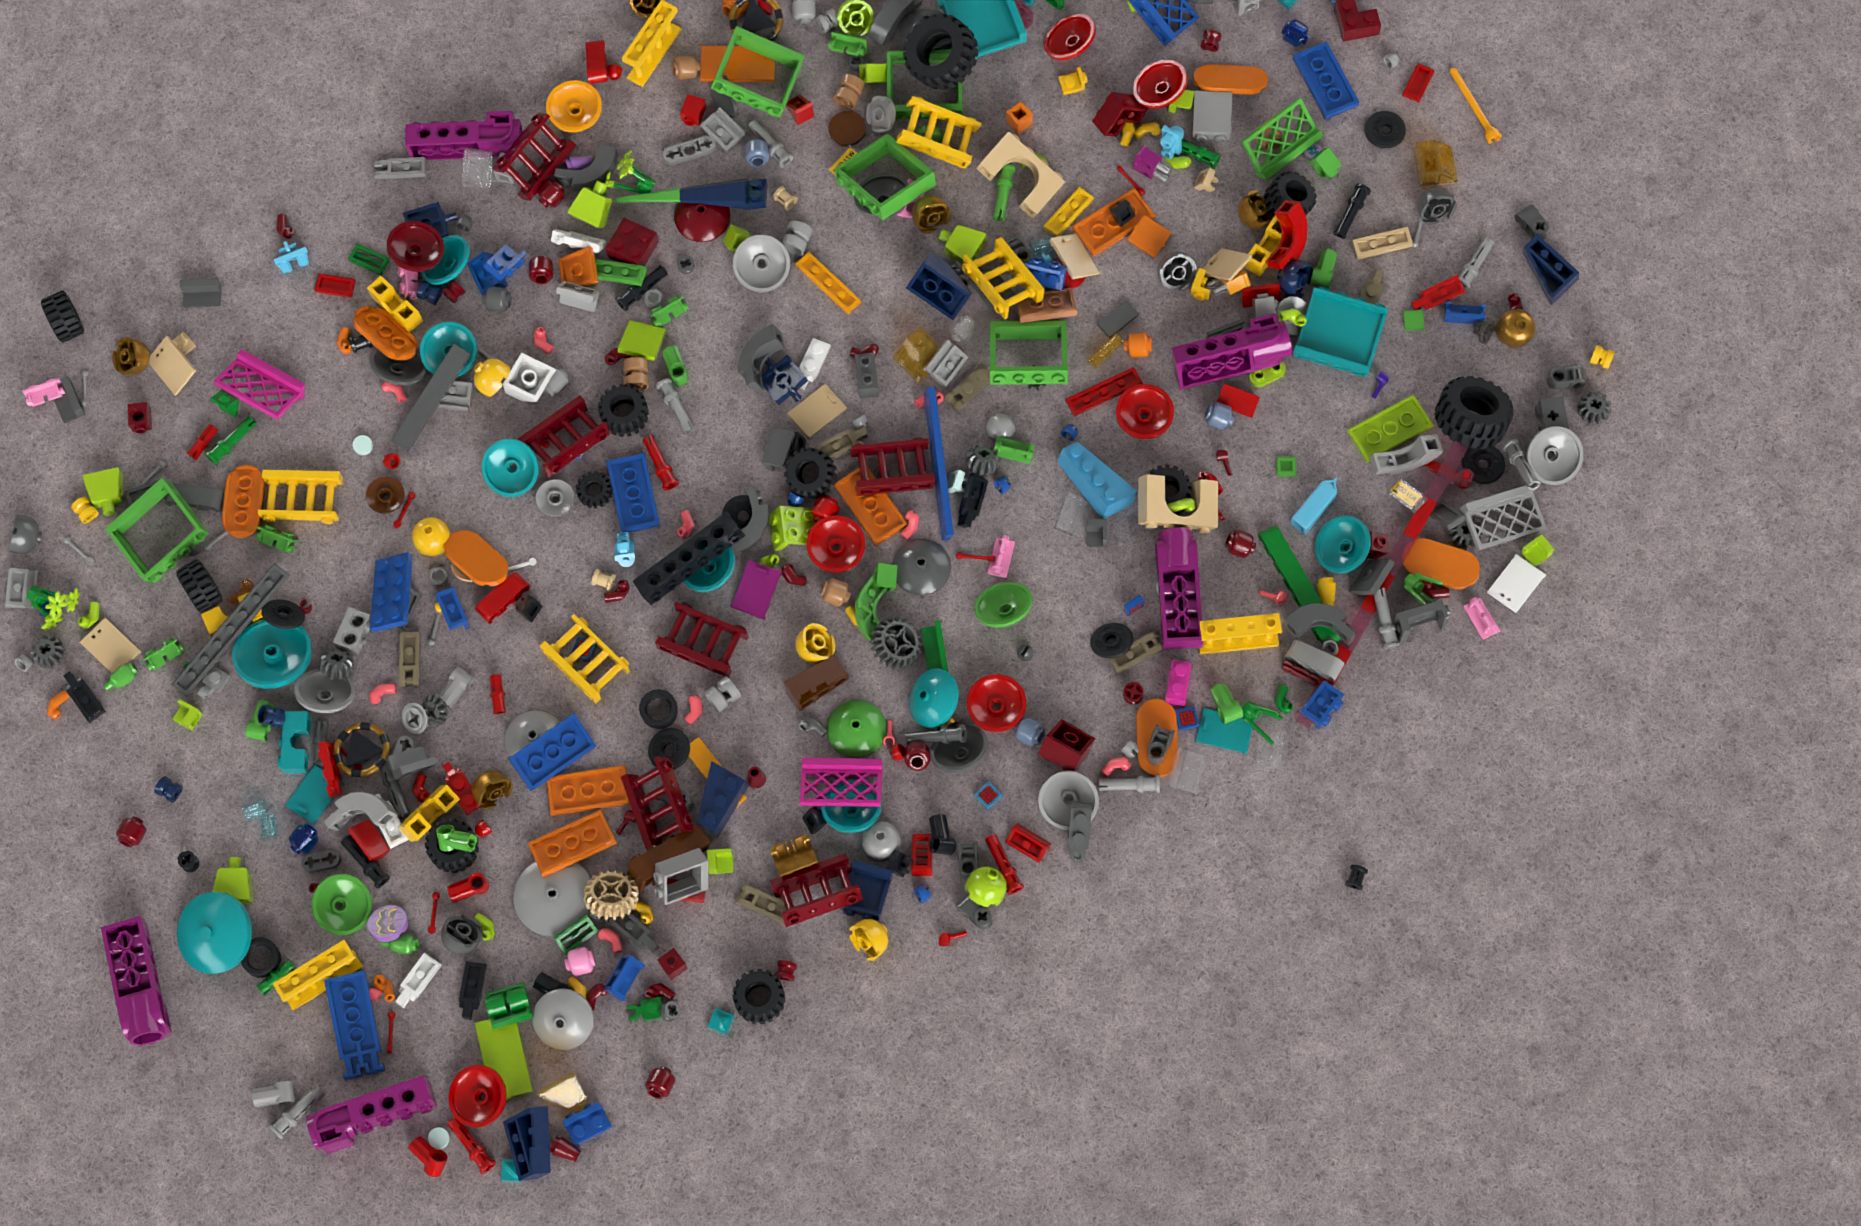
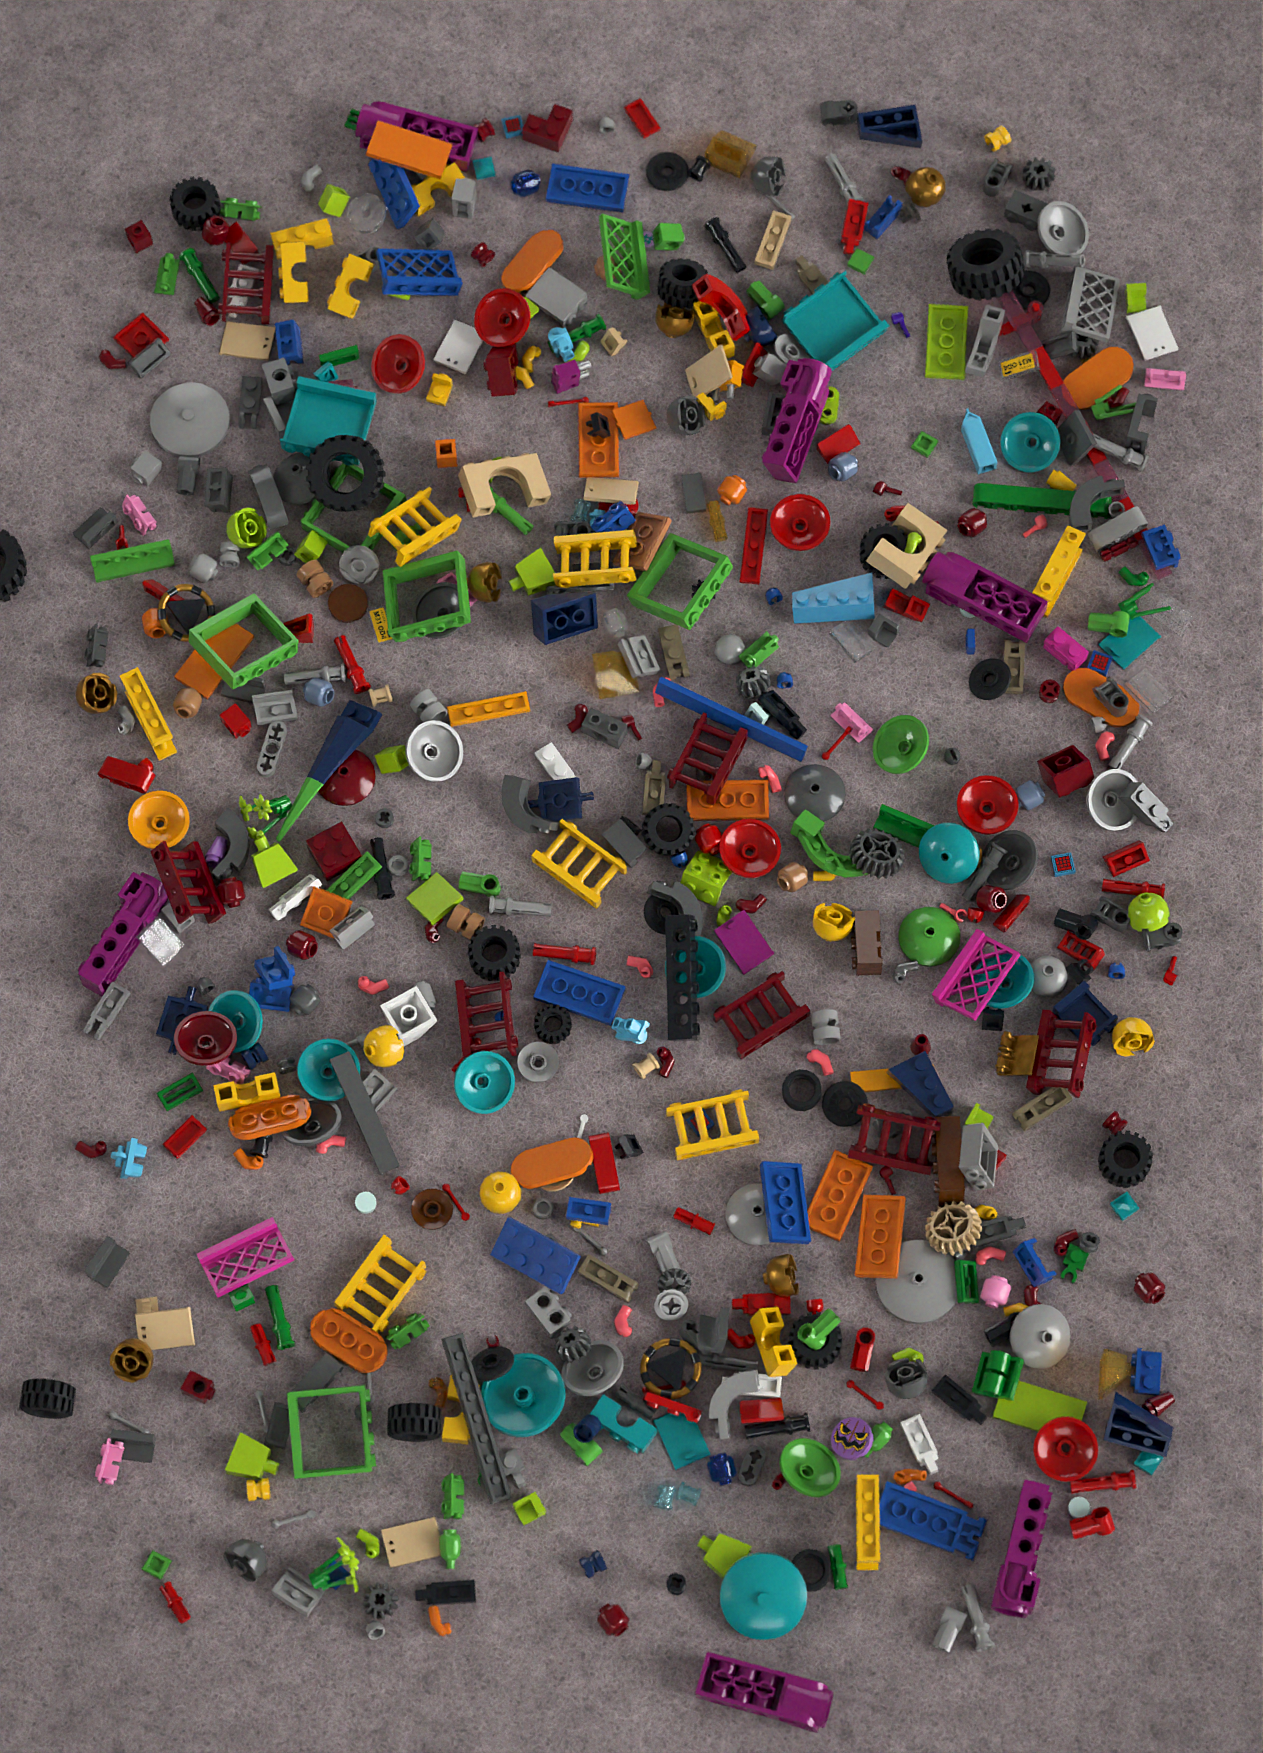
camera: 60 degrees left, 0 degrees up
(435, 318) = (286, 1065): none -> dark grey bush
(453, 291) = (268, 1034): dark red wheel -> none
(672, 964) = (1048, 1214): dark red brick -> none
(725, 416) = (576, 883): none -> yellow fence
(792, 168) = (354, 672): none -> red pin
(816, 411) = (607, 791): tan container -> none
(888, 391) = (629, 720): none -> dark red hand
(918, 780) = (1012, 912): none -> red slope
(1068, 212) = (563, 470): yellow tile -> none
(1118, 73) = (459, 347): none -> white container
(1132, 538) = (907, 606): none -> red slope
(1294, 316) = (795, 349): lime arm -> none
(1404, 150) = (699, 168): none -> black bush
(1490, 132) = (731, 92): light orange piece -> none

